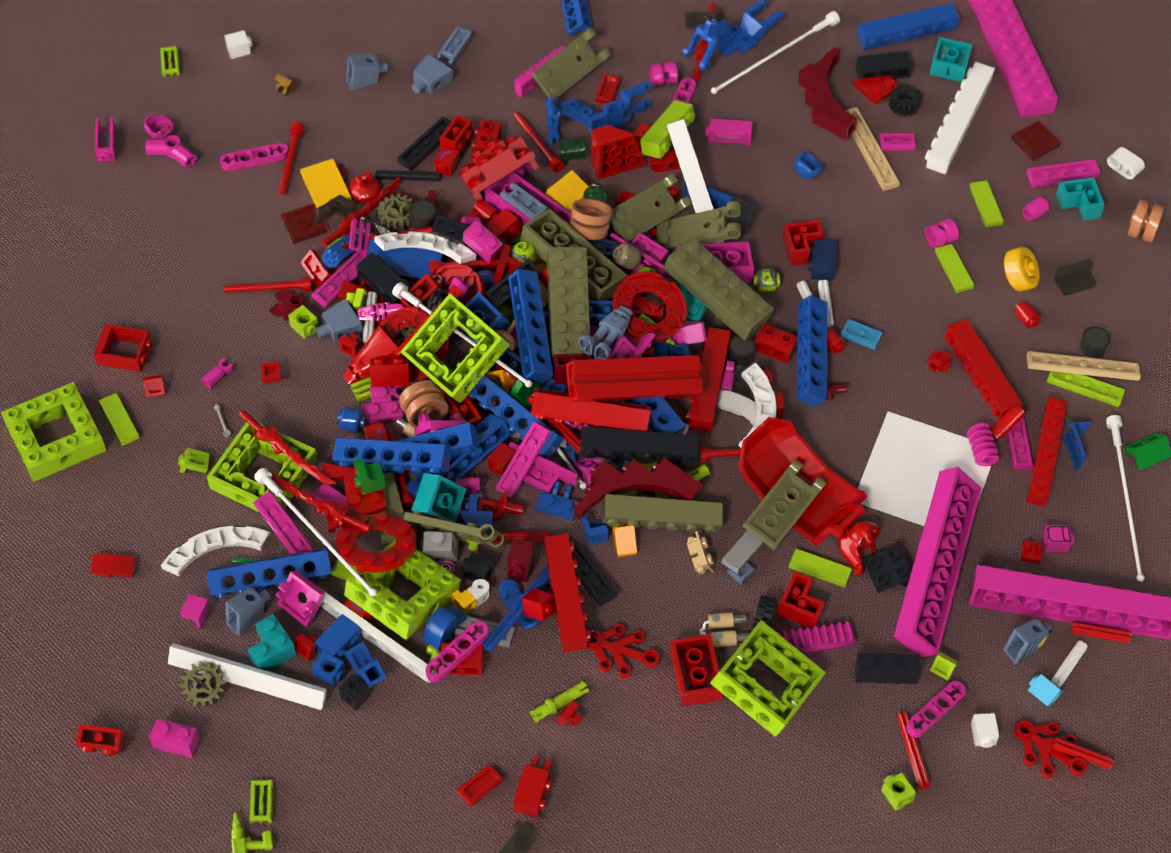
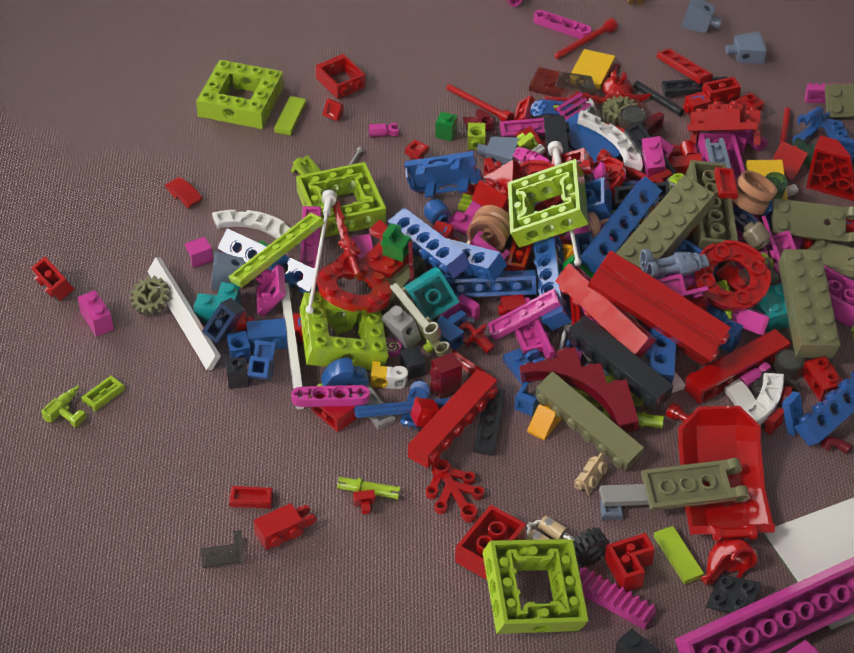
camera: 45 degrees right, 10 degrees down
(269, 330) = (446, 126): none -> green brick
(275, 559) = (276, 250): none -> lime tile
(278, 444) = (364, 178): red sword -> none
(299, 656) = (223, 320): none -> dark blue brick
(314, 387) = (444, 170): none -> blue piece
(394, 485) = (410, 261): none -> dark red piece
(399, 129) = (684, 66): none -> red tile
(455, 45) = (789, 41): sand blue hinge -> none
(568, 160) = (791, 157): none -> red piece
(568, 227) = (726, 183): none -> red tile
(789, 390) = (793, 411): none -> blue plate

